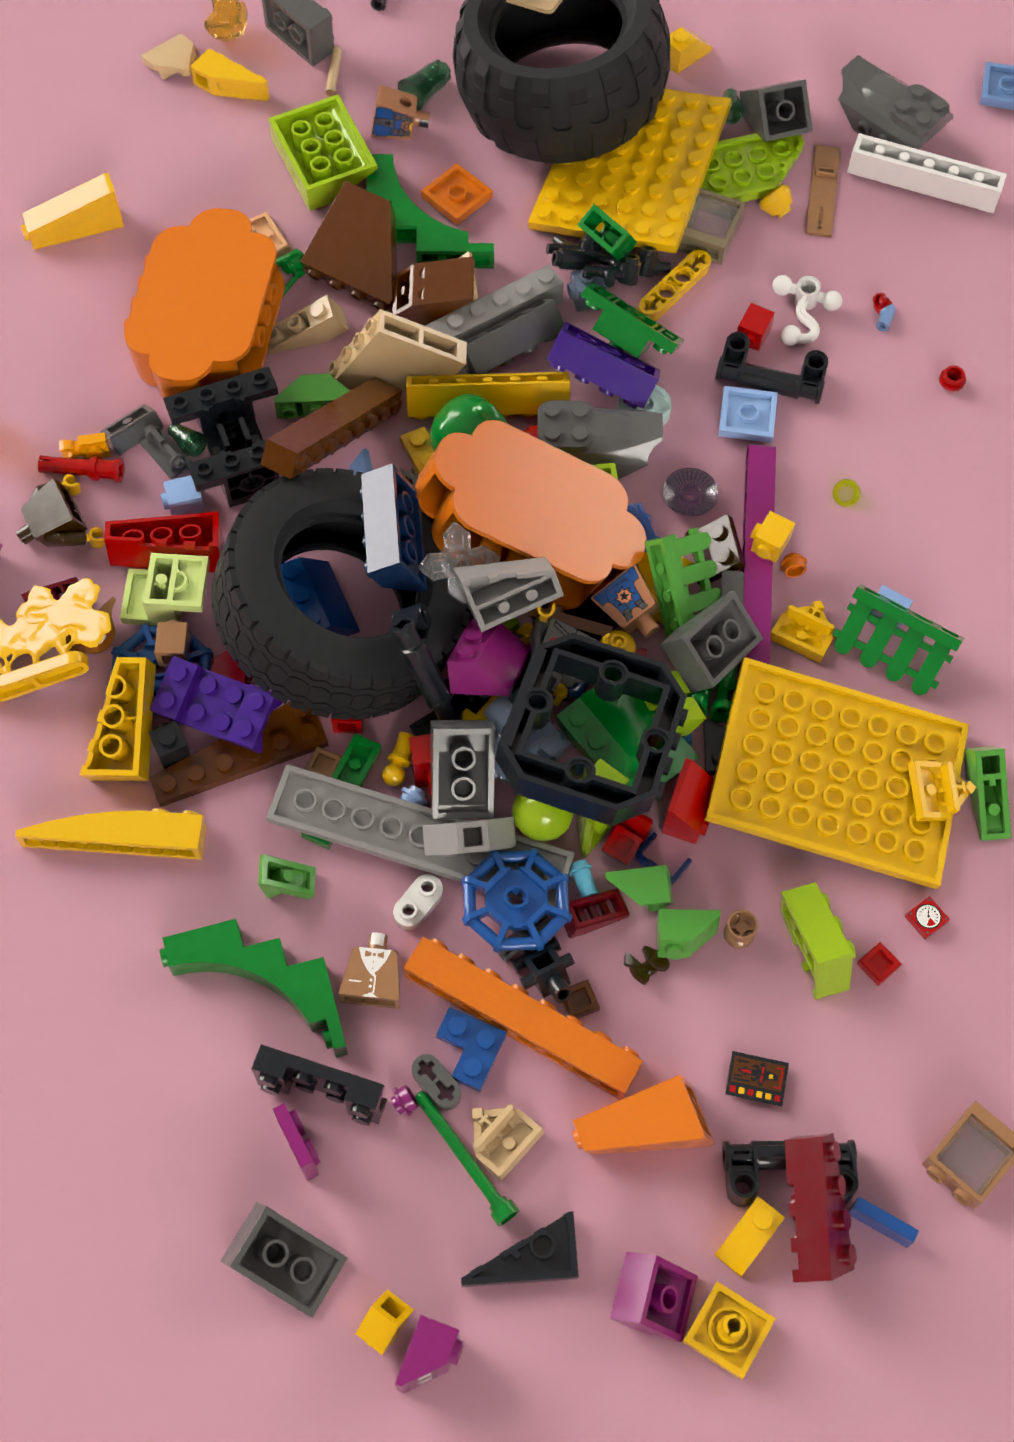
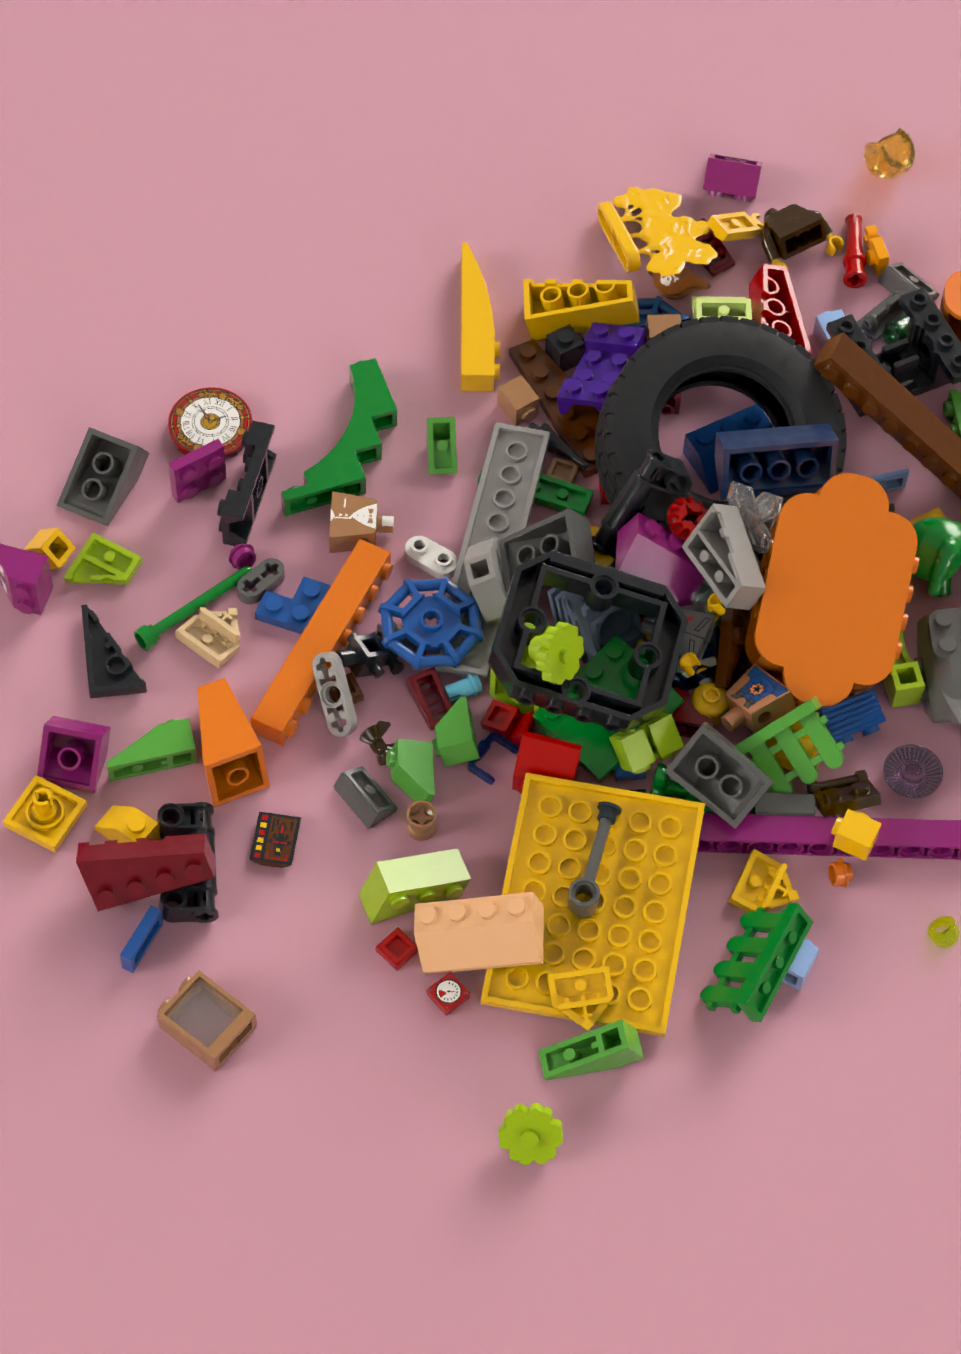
camera: 85 degrees right, 5 degrees down
(40, 564) = (735, 226): none -> yellow plate
(217, 1132) = (209, 416): none -> tile
(231, 797) = (518, 400): none -> medium nougat brick
(275, 773) = (559, 447): none -> black piece
(401, 1260) = (103, 563): none -> lime wing
(446, 628) = (678, 511): none -> red gear
(586, 997) = (337, 671): none -> light grey beam
(631, 746) = (557, 652): none -> lime plant
(651, 1197) = (160, 749): none -> bright green slope
(706, 986) = (364, 796): none -> dark grey slope
(837, 779) = (587, 885): none -> dark grey piece
(879, 875) = (479, 933): none -> light nougat slope

